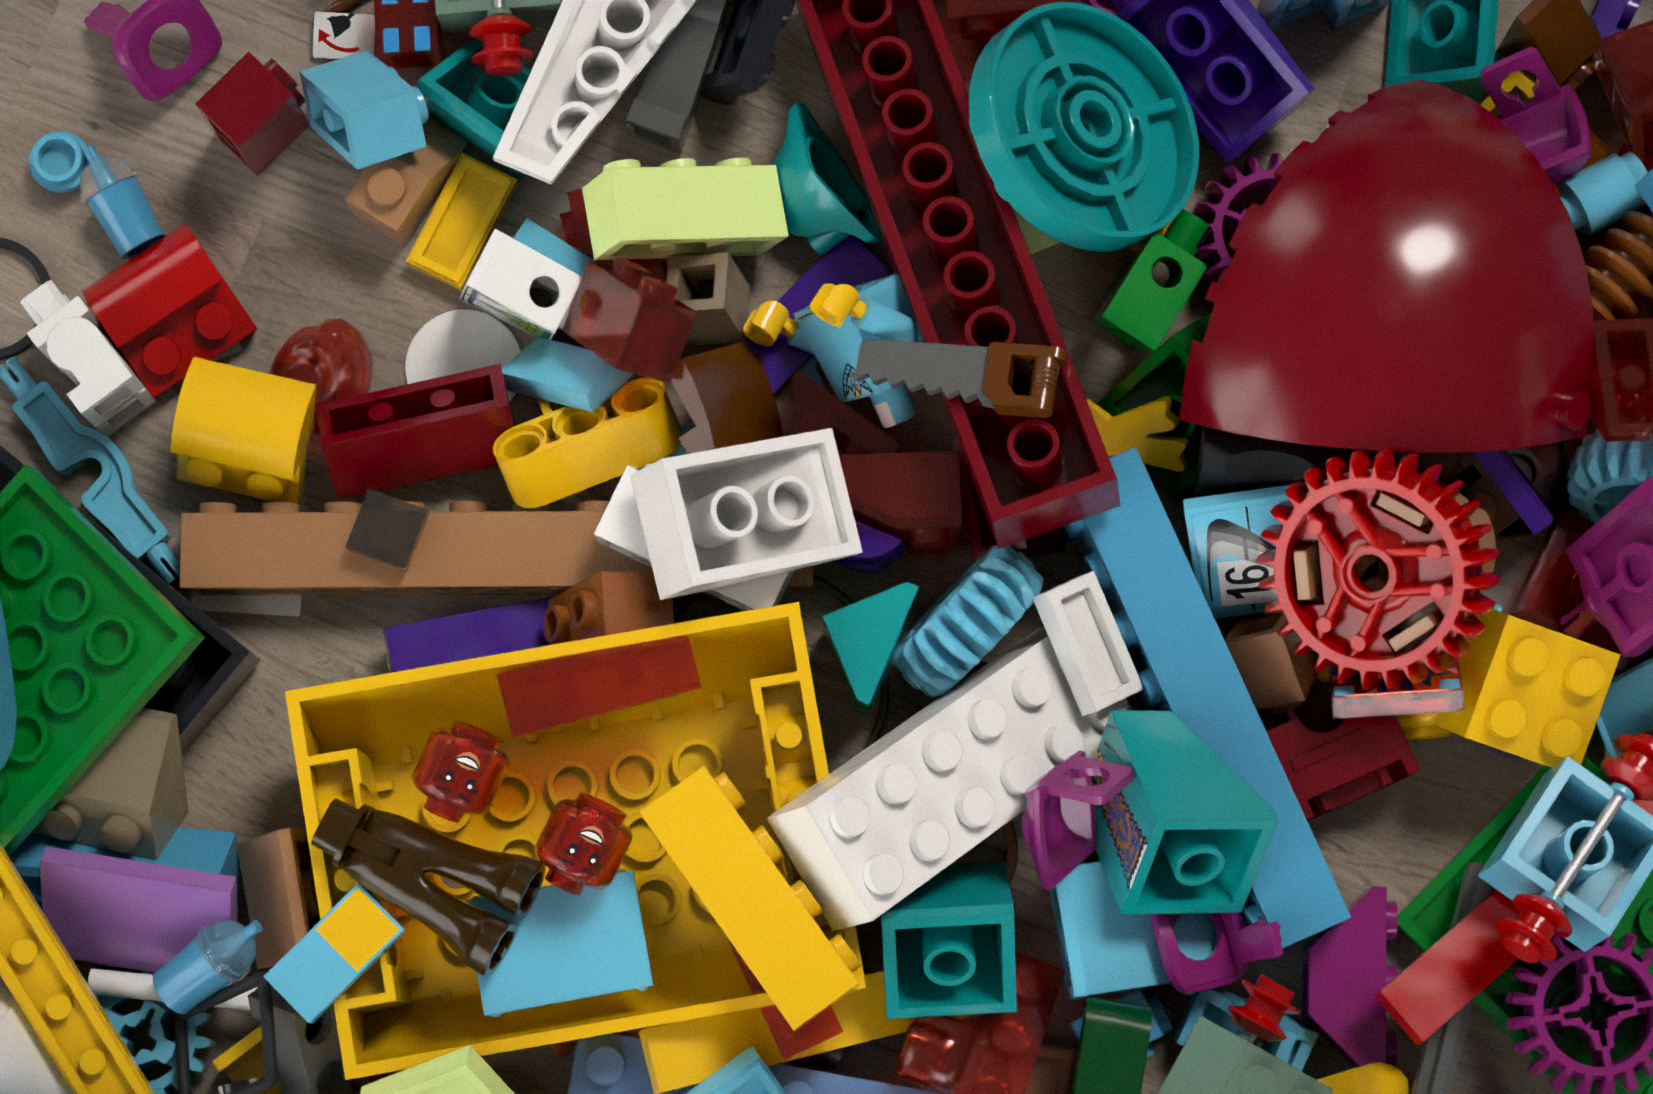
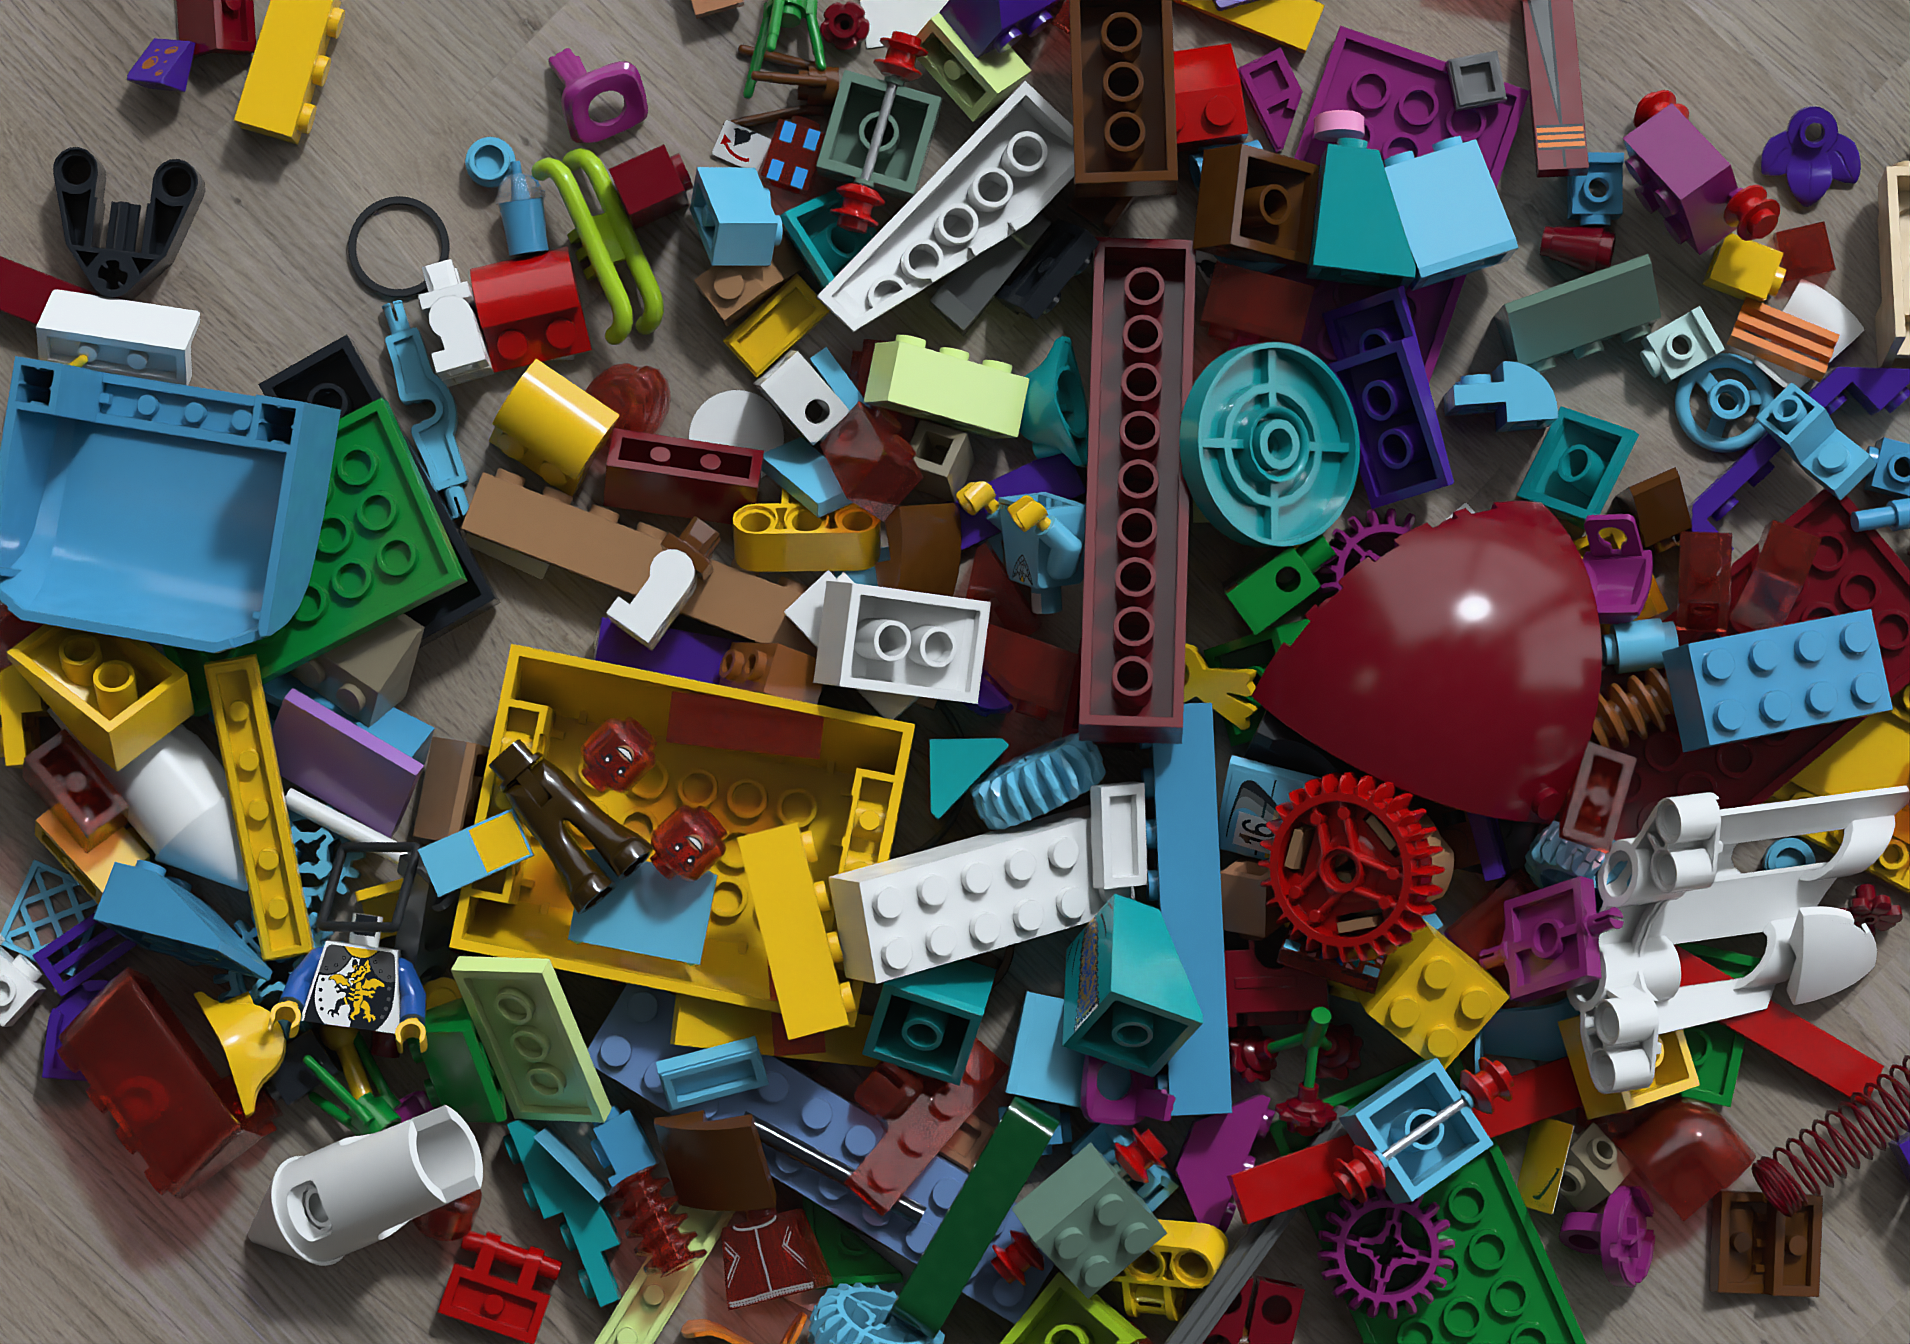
camera: 15 degrees right, 5 degrees up
(207, 964) = (378, 820): piece -> none
(228, 197) = (605, 241): none -> lime piece
(387, 530) = (631, 545): clear smoke tile -> none
(447, 555) = (669, 585): none -> white hips
(966, 372) = (1103, 602): piece -> none
(1062, 815) = (1049, 955): magenta piece -> none
(1432, 810) = (1329, 1054): none -> dark red plant

